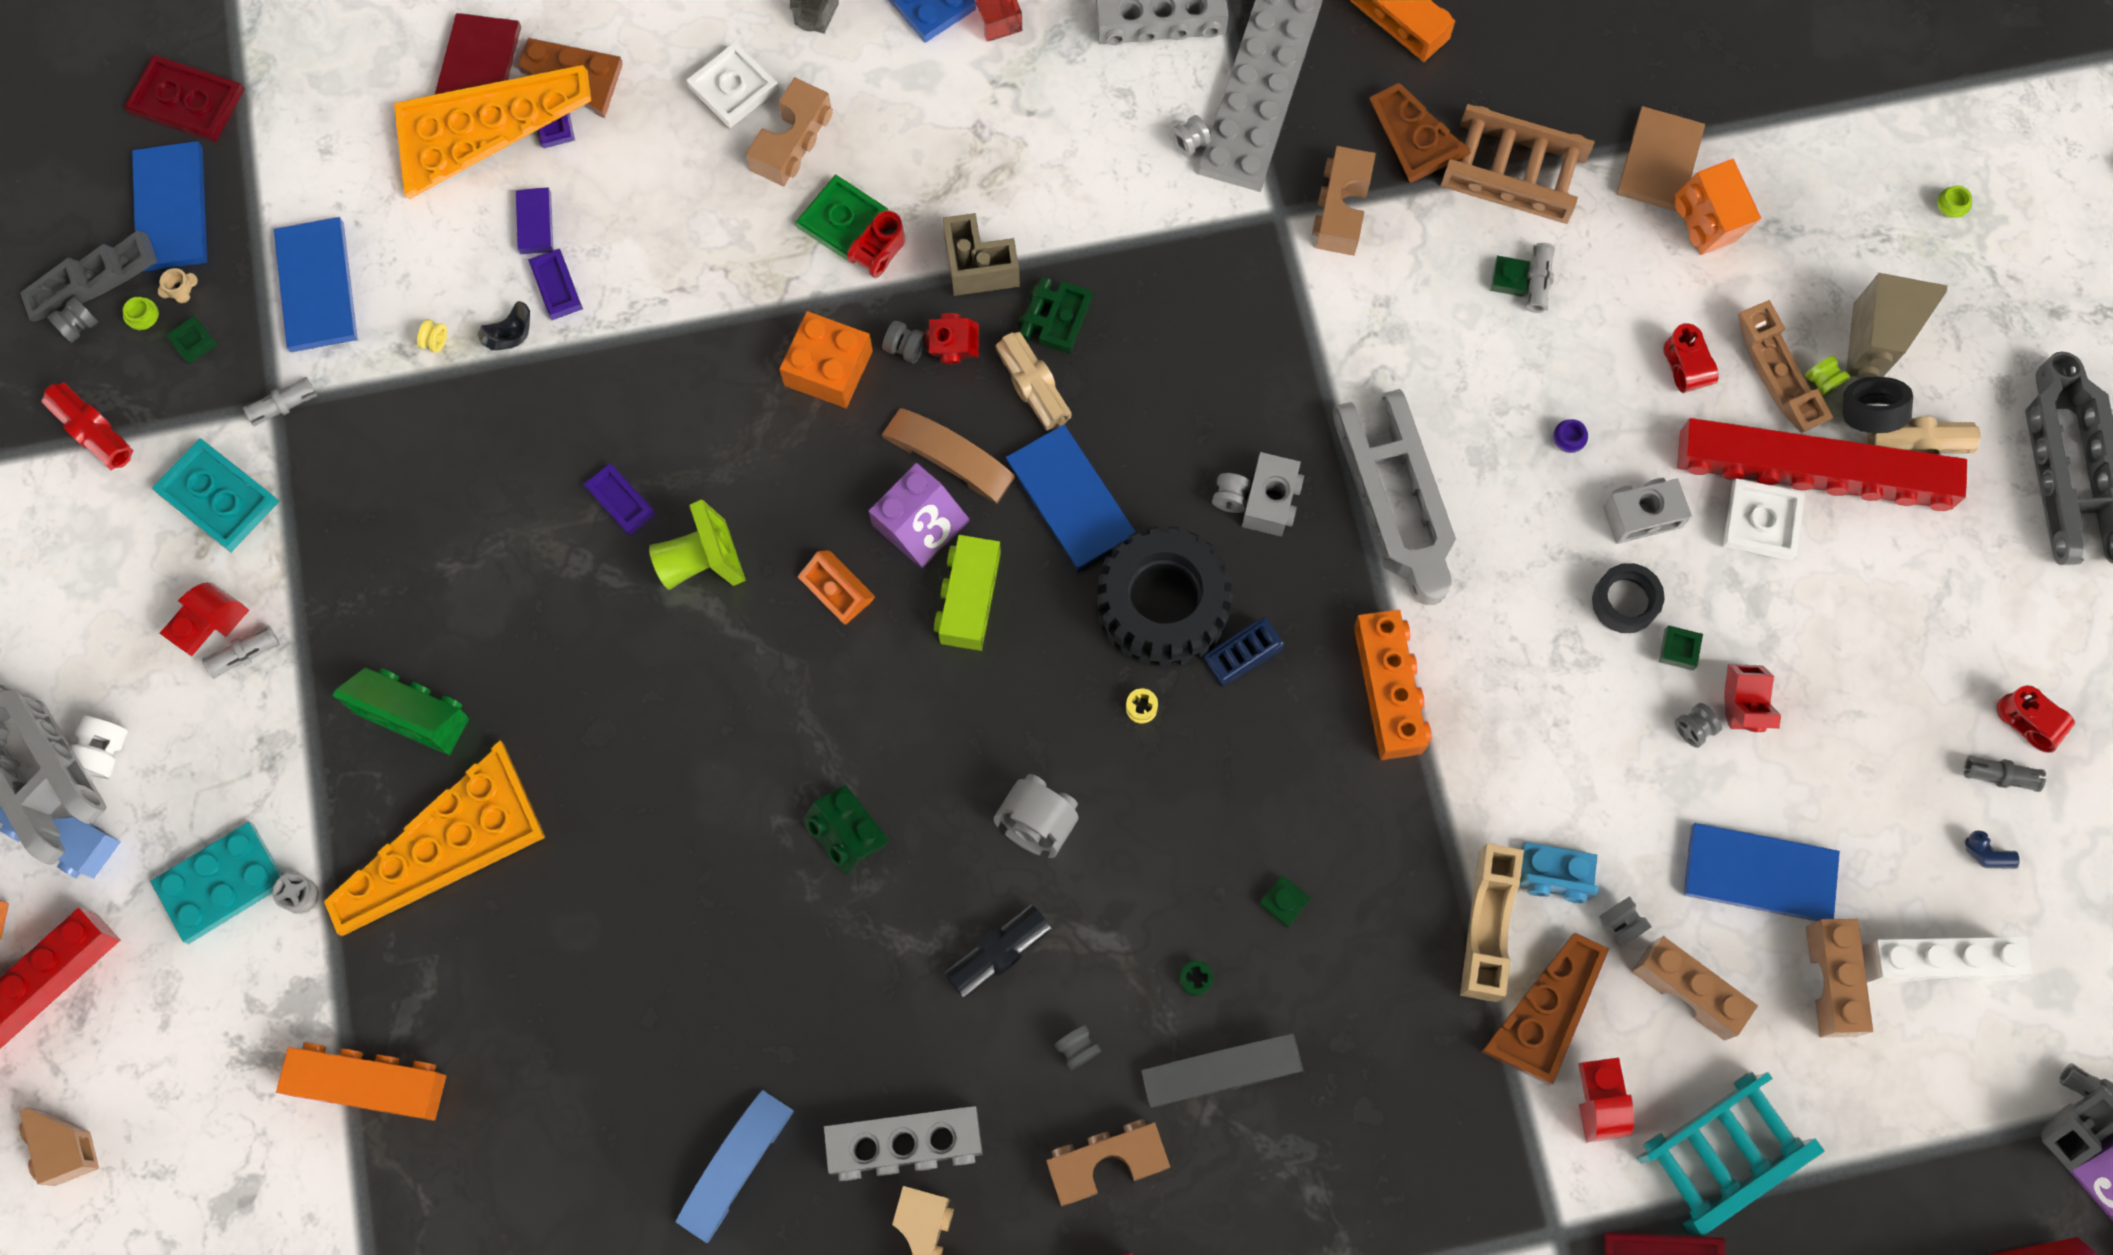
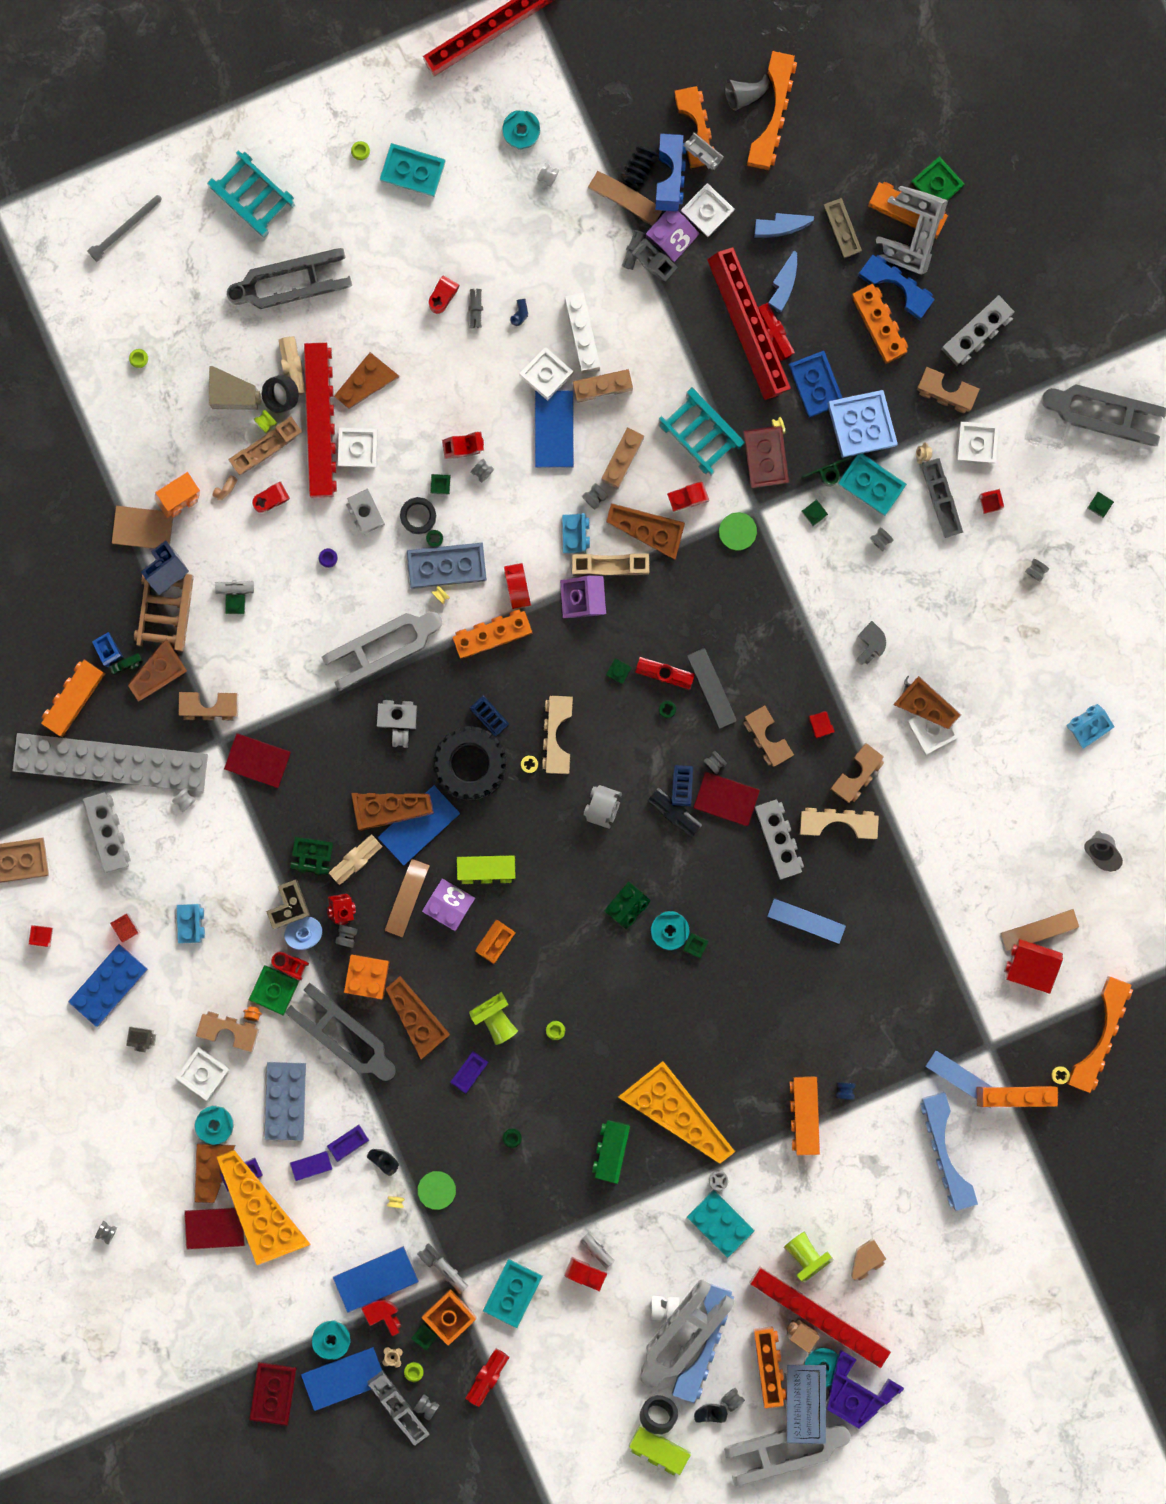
camera: 100 degrees left, 15 degrees up
(92, 1030) = (807, 1256): none -> lime plant
(206, 379) = (449, 1317): none -> orange brick
(241, 213) = (329, 1350): none -> teal plate
(254, 284) = (381, 1310): none -> red brick
(325, 371) = (429, 1255): none -> dark grey wheel
(388, 1173) = (845, 1090): none -> dark blue wheel
(432, 407) = (436, 1190): none -> bright green tile
(483, 547) = (512, 1138): none -> dark green plate
(647, 104) = (208, 1134): none -> teal plate
(651, 657) = (555, 1030): none -> lime plate
(653, 201) = (285, 1101): none -> sand blue plate
(673, 352) = (378, 1064): none -> dark grey piece
(729, 432) = (419, 1021): none -> dark orange wing
(740, 940) = (695, 945): none -> dark green plate
(767, 881) = (661, 923): none -> teal plate
(810, 175) = (252, 1013): none -> orange plate
(924, 273) = (296, 931): none -> light blue dish
(983, 112) = (189, 923): none -> dark azure bracket
(1003, 1057) = (726, 799): none -> dark red tile
(1067, 981) = (682, 773): none -> dark blue slope
(1110, 448) = (383, 809): none -> dark orange wing
(1229, 773) = (559, 710): none -> tan arch
(1235, 262) = (257, 760): none -> dark red tile
(1255, 1006) = (677, 677): none -> red piece
(1437, 98) = (131, 662): none -> dark green plate
(1437, 862) = (583, 596): none -> medium lavender slope
(1459, 69) = (107, 650): none -> blue slope
(1473, 743) = (517, 586): none -> red brick
(1477, 609) = (440, 595): none -> light yellow bush
(1521, 1187) = (737, 531): none -> bright green tile
(1529, 633) = (446, 565): none -> sand blue tile
(1583, 609) = (434, 544): none -> dark green bush
(1594, 168) = (165, 569): none -> dark blue brick
(1707, 288) = (227, 488): none -> medium nougat arm
(1872, 876) = (546, 373): none -> white plate
(1886, 559) = (365, 380): none -> dark orange wing

